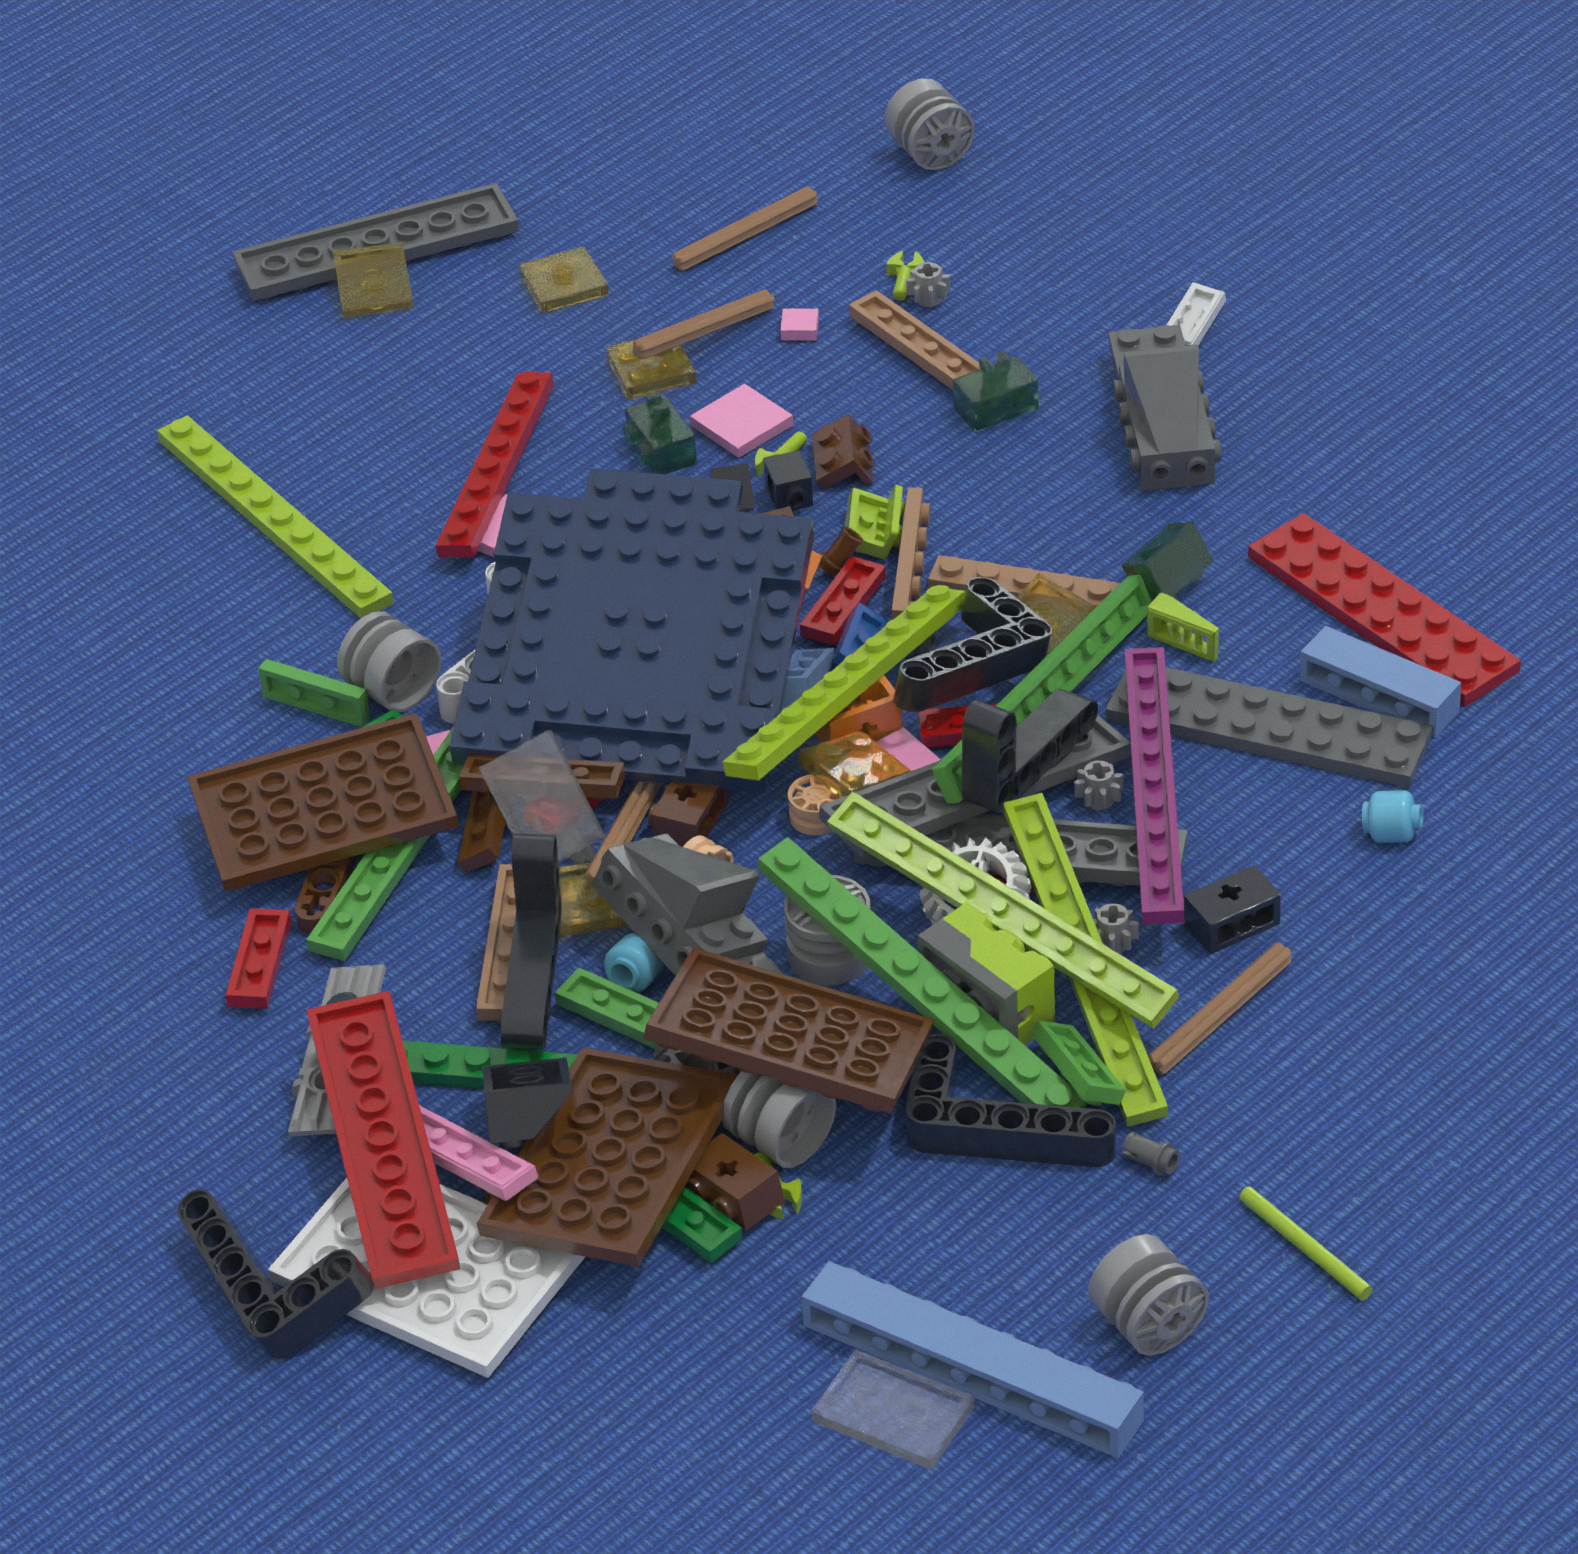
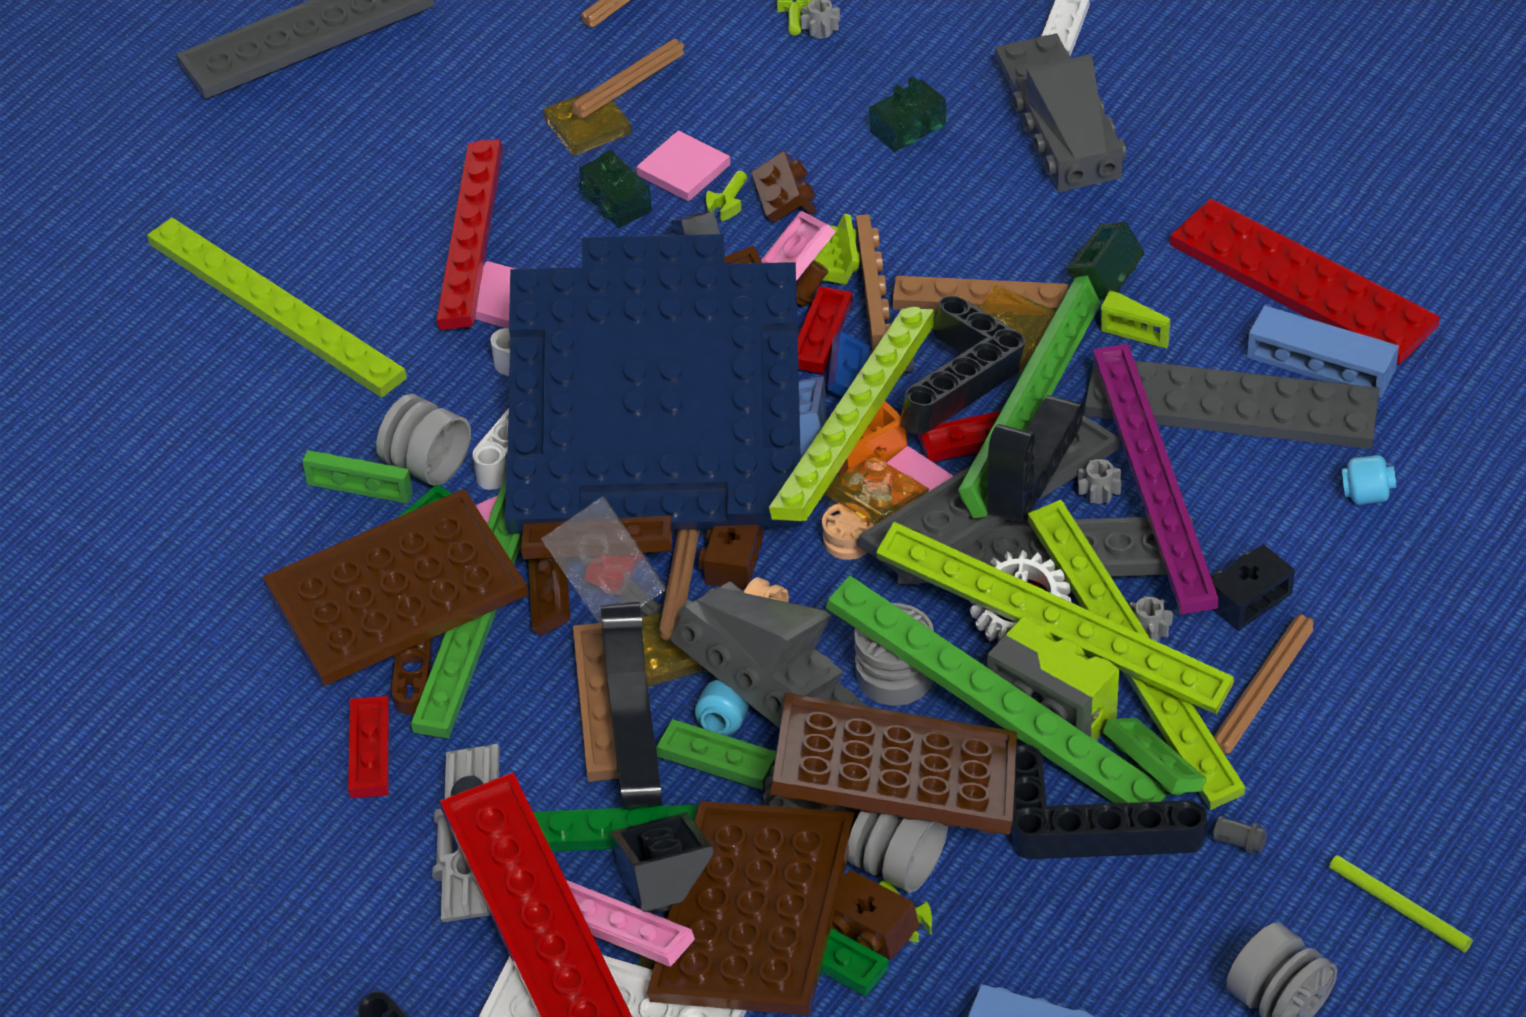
camera: 10 degrees left, 5 degrees up
(373, 279) = (313, 67): clear yellow plate -> none
(563, 279) = (486, 47): clear yellow plate -> none
(788, 481) = (742, 220): black brick -> none
(799, 324) = (712, 68): bright pink tile -> none
(838, 510) = (800, 242): none -> bright pink tile
(912, 338) = (820, 71): medium nougat plate -> none

